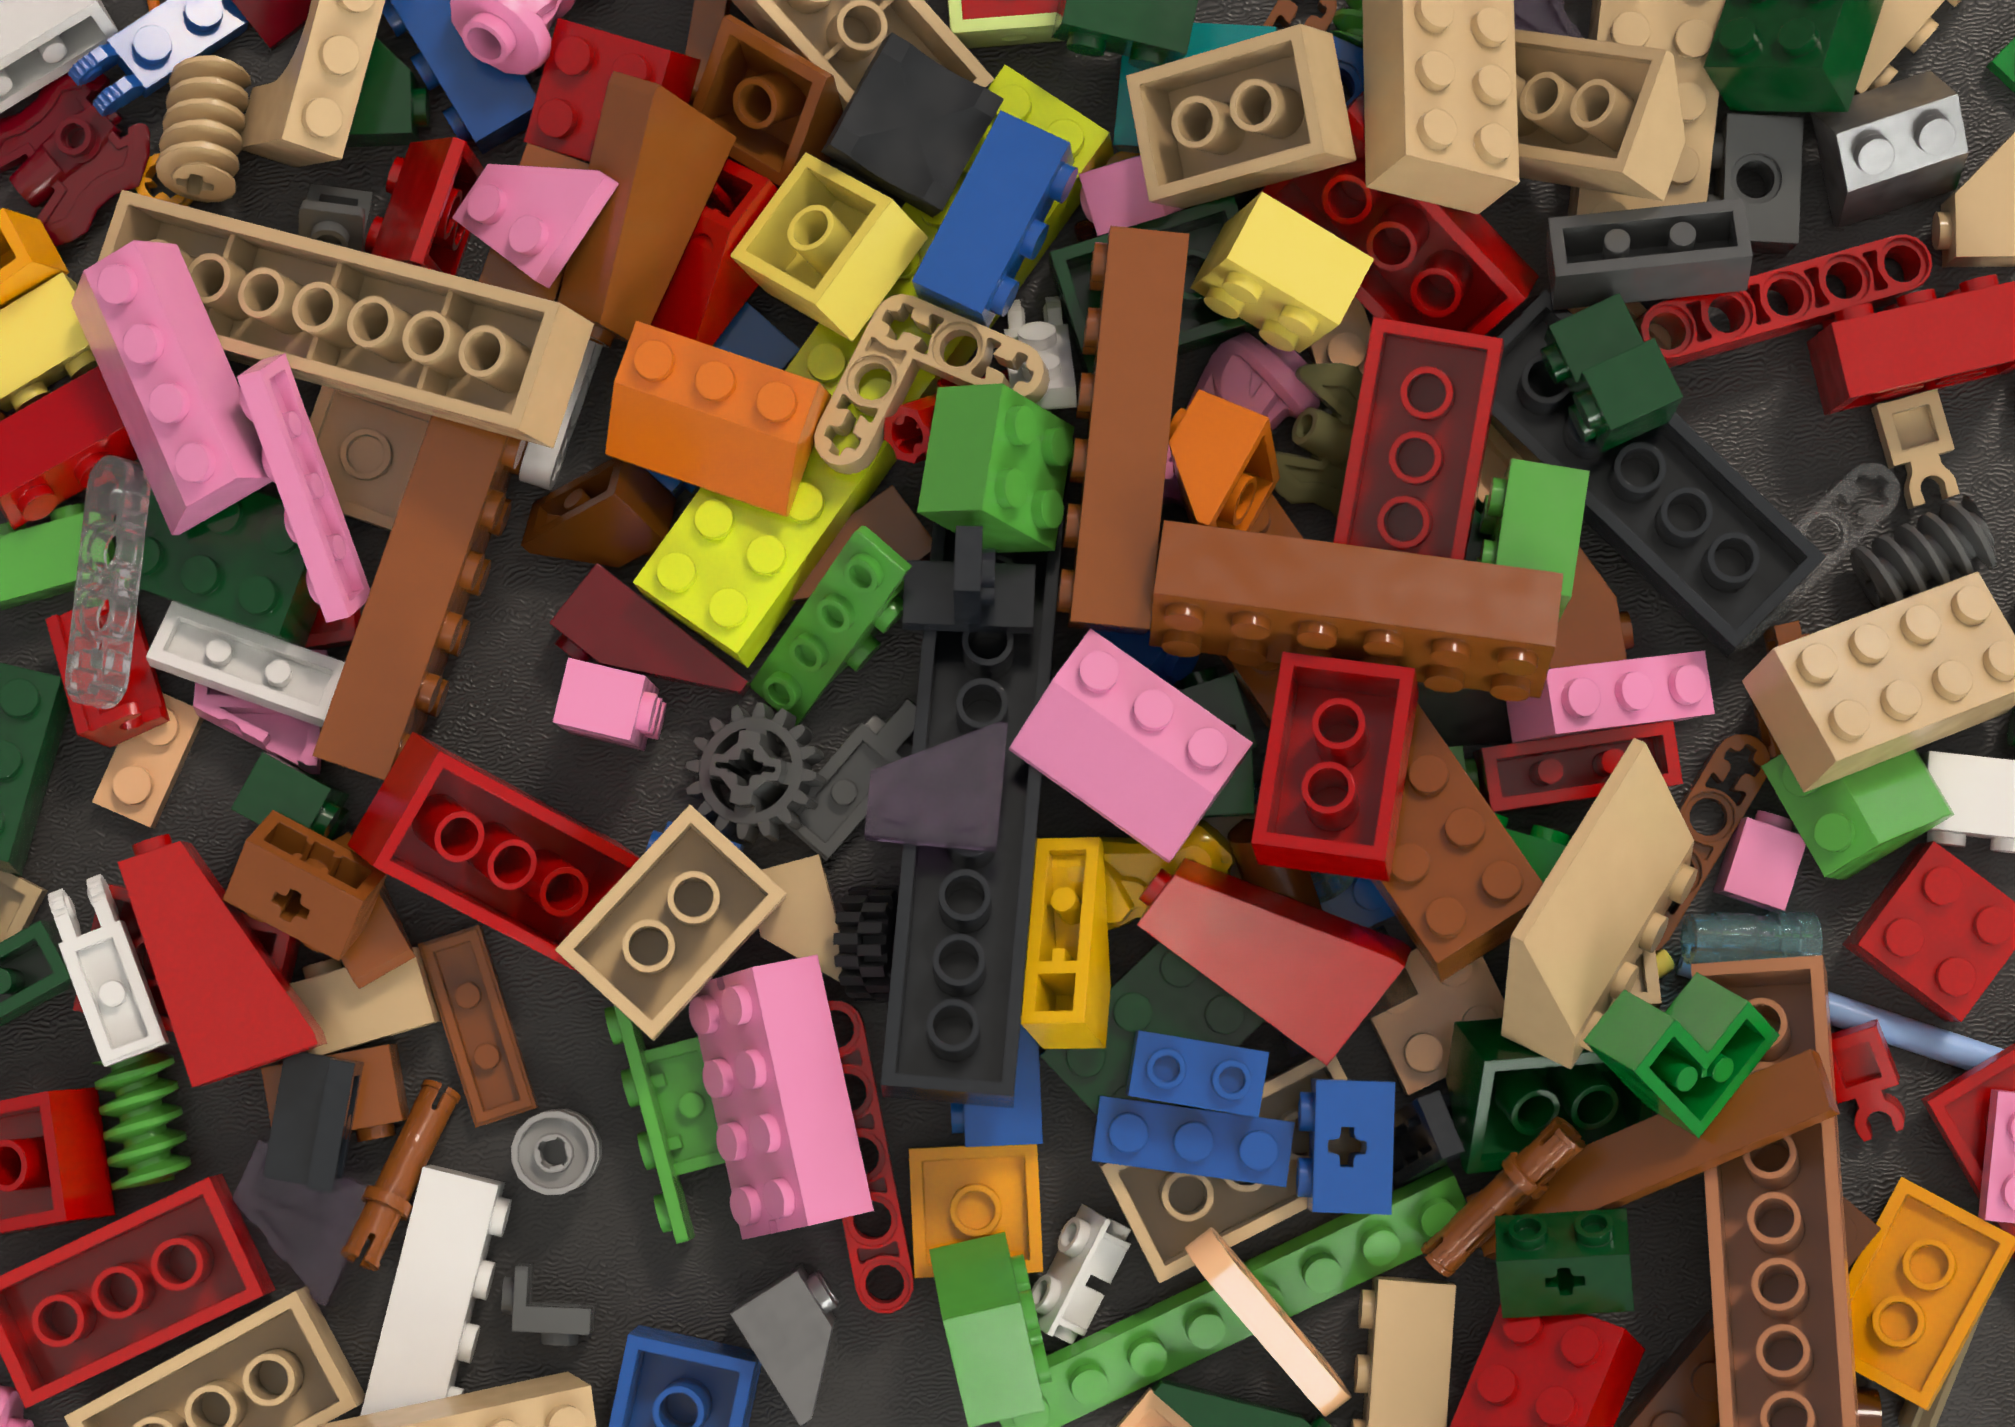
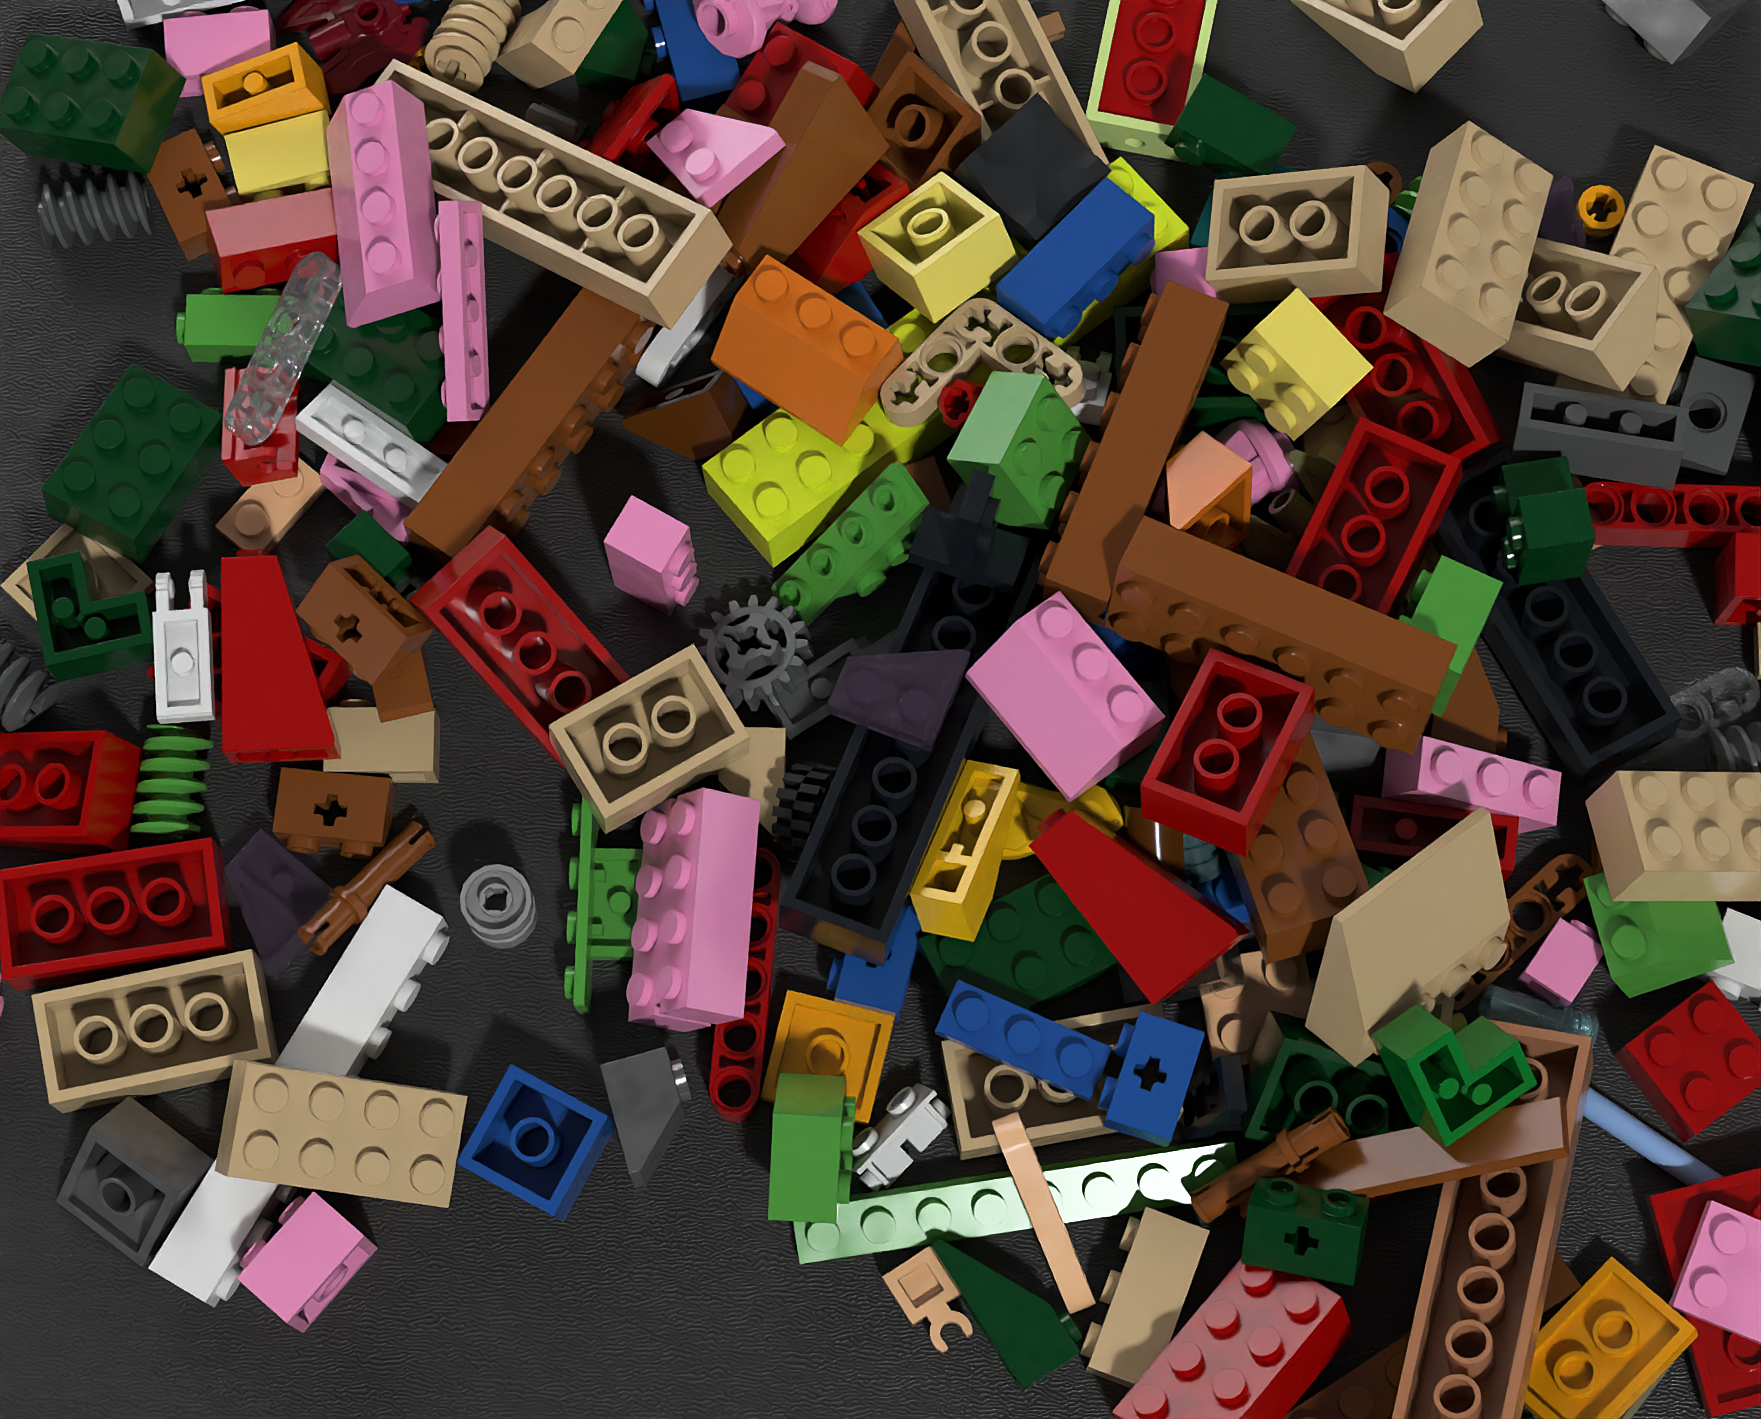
camera: 25 degrees right, 10 degrees down
(313, 1121) = (311, 818): black panel -> none
(367, 452) = (520, 310): light nougat plate -> none
(478, 1025) = (466, 792): dark orange tile -> none
(556, 1322) = (455, 1046): dark grey bracket -> none
(628, 634) = (717, 544): dark red slope -> none
(1197, 1073) = (1042, 980): blue brick -> none
(1863, 1073) = (1602, 1158): red plate -> none

